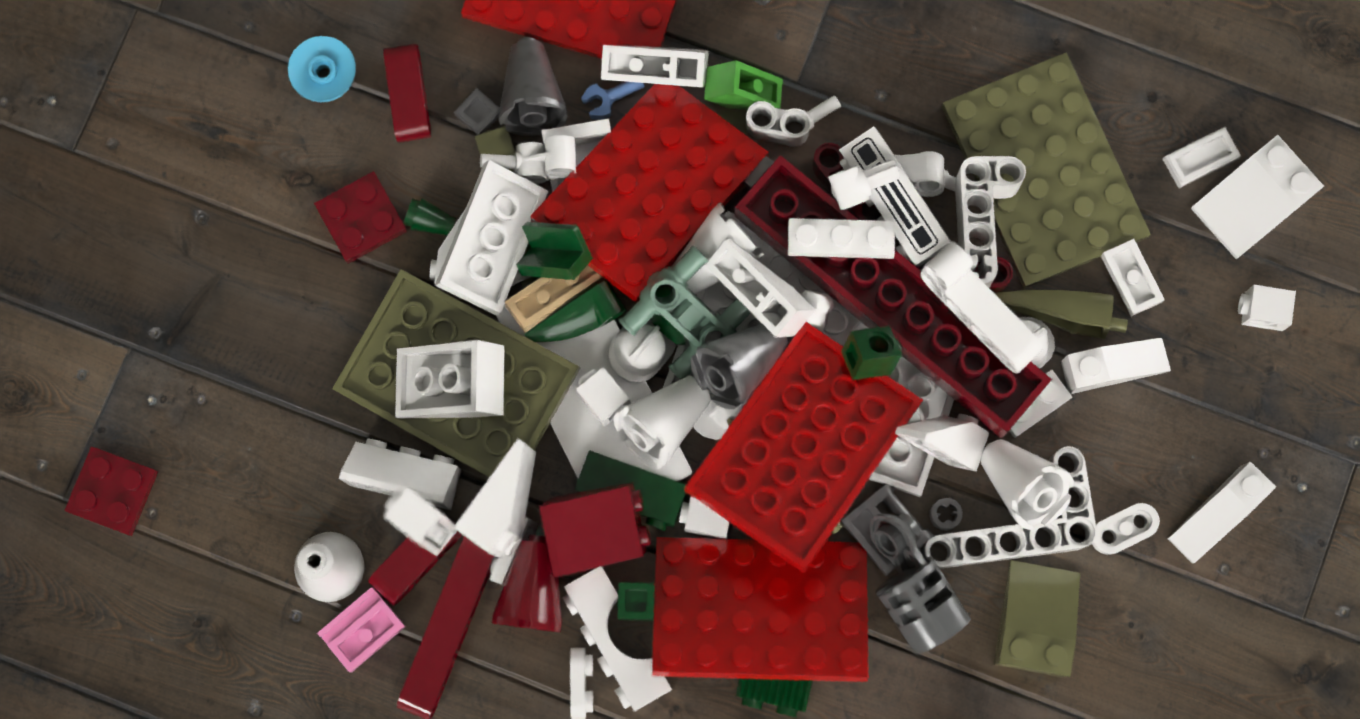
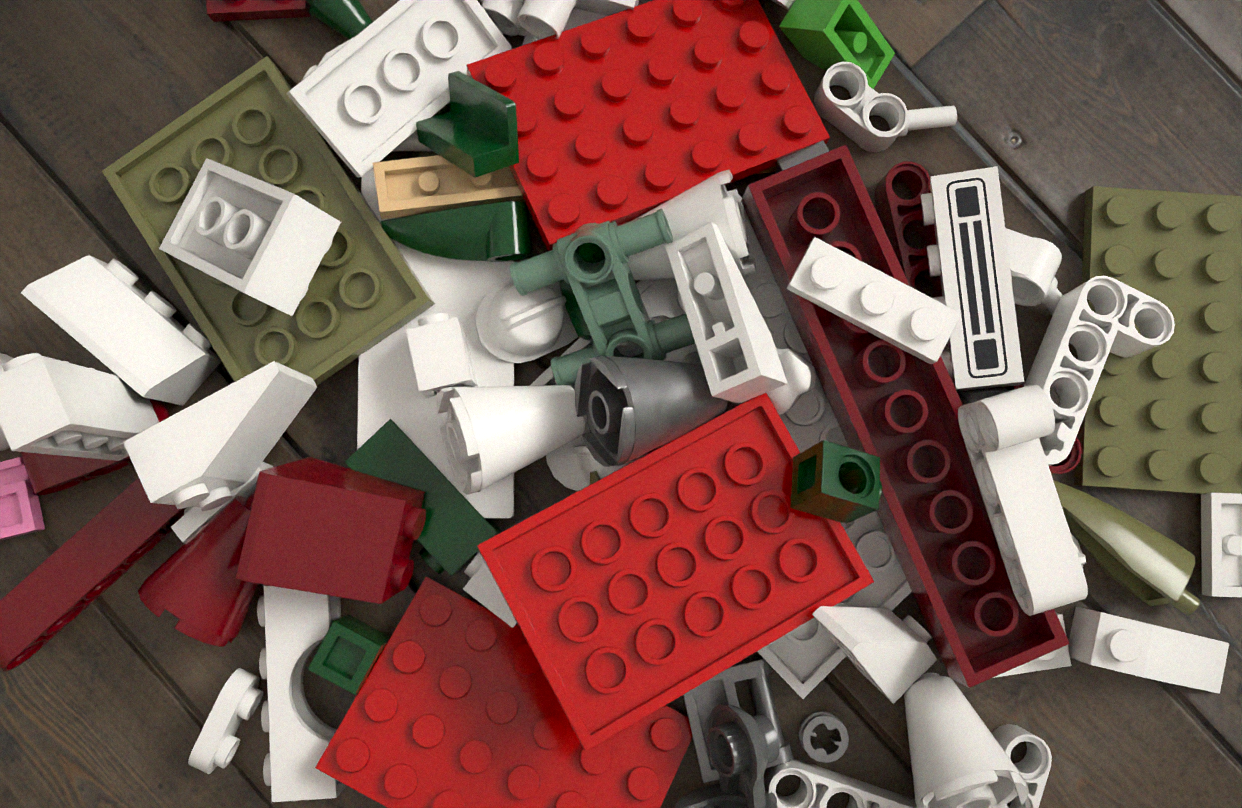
camera: 20 degrees right, 5 degrees up
(855, 185) = (932, 235): white axle -> none

